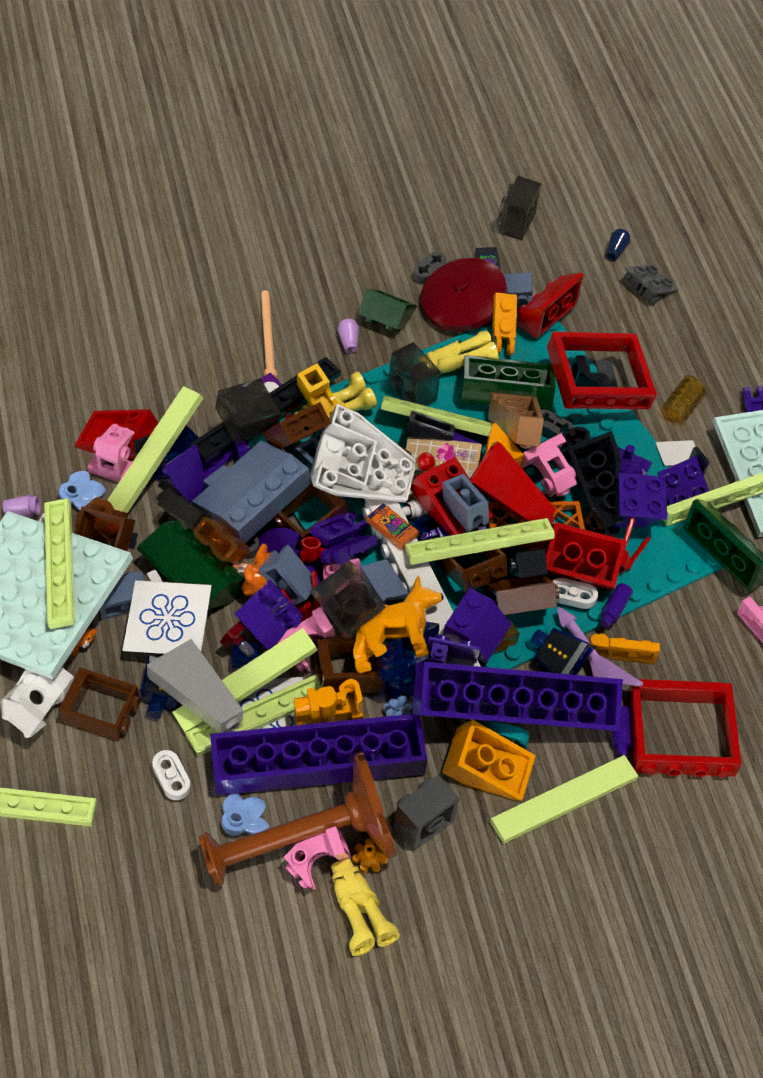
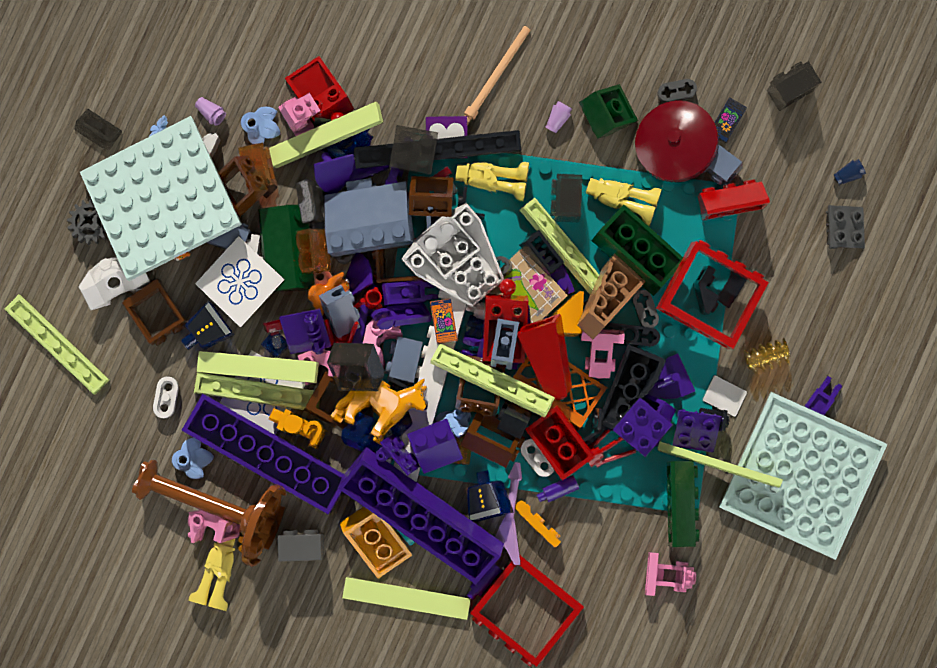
camera: 45 degrees right, 30 degrees up
(59, 564) = (188, 194): yellowish green tile -> none
(195, 684) = (218, 352): light grey slope -> none
(316, 388) = (477, 168): yellow arch -> none
(397, 706) = (344, 458): light blue plant -> none
(504, 321) = (682, 193): light orange hinge -> none

